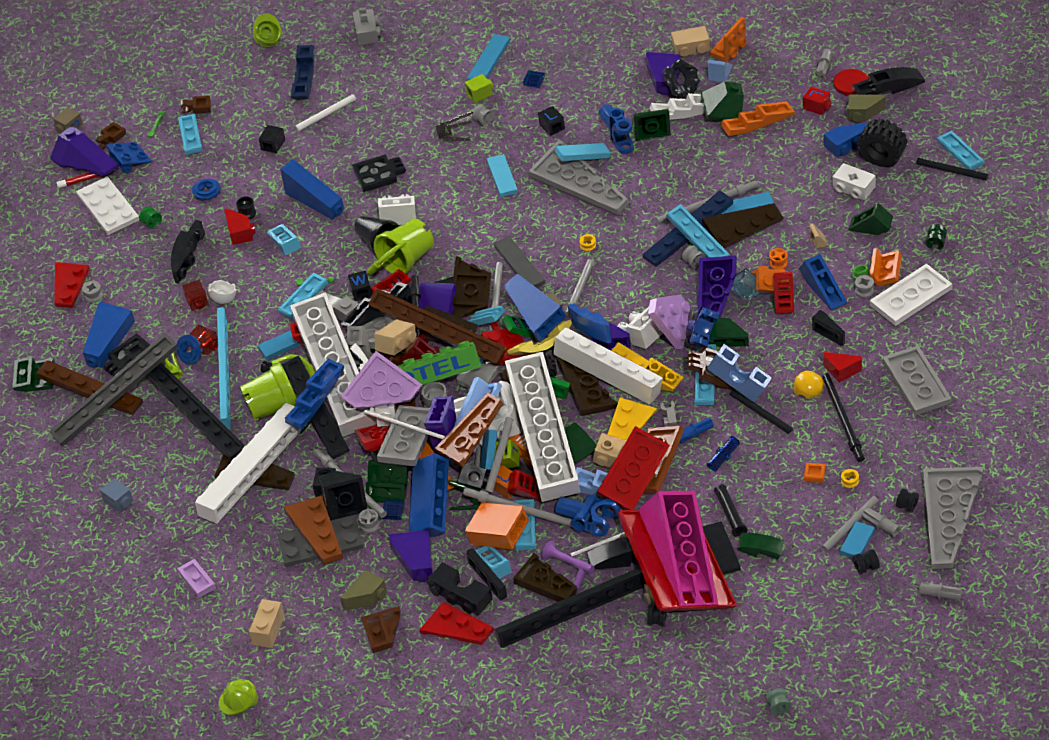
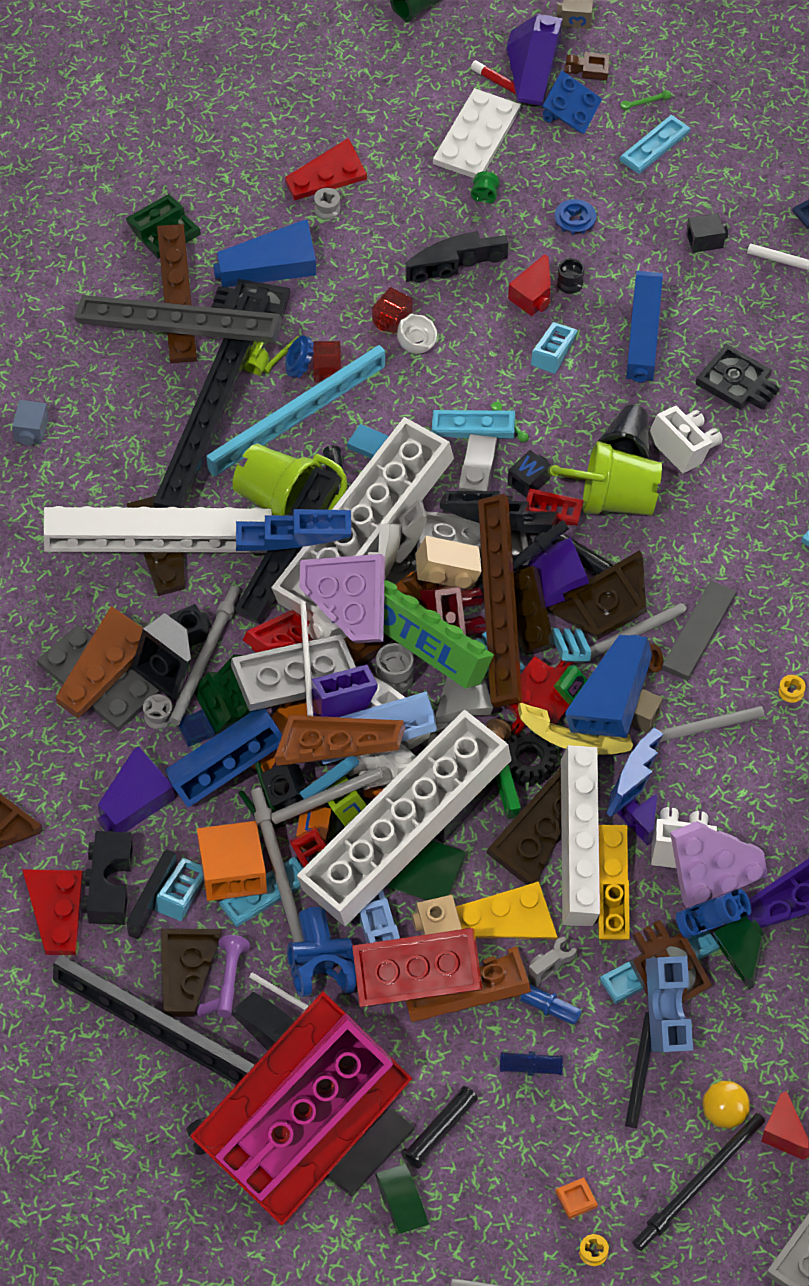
camera: 50 degrees right, 10 degrees up
(199, 104) = (706, 123): reddish brown plate -> none
(364, 591) = (42, 772): olive slope -> none

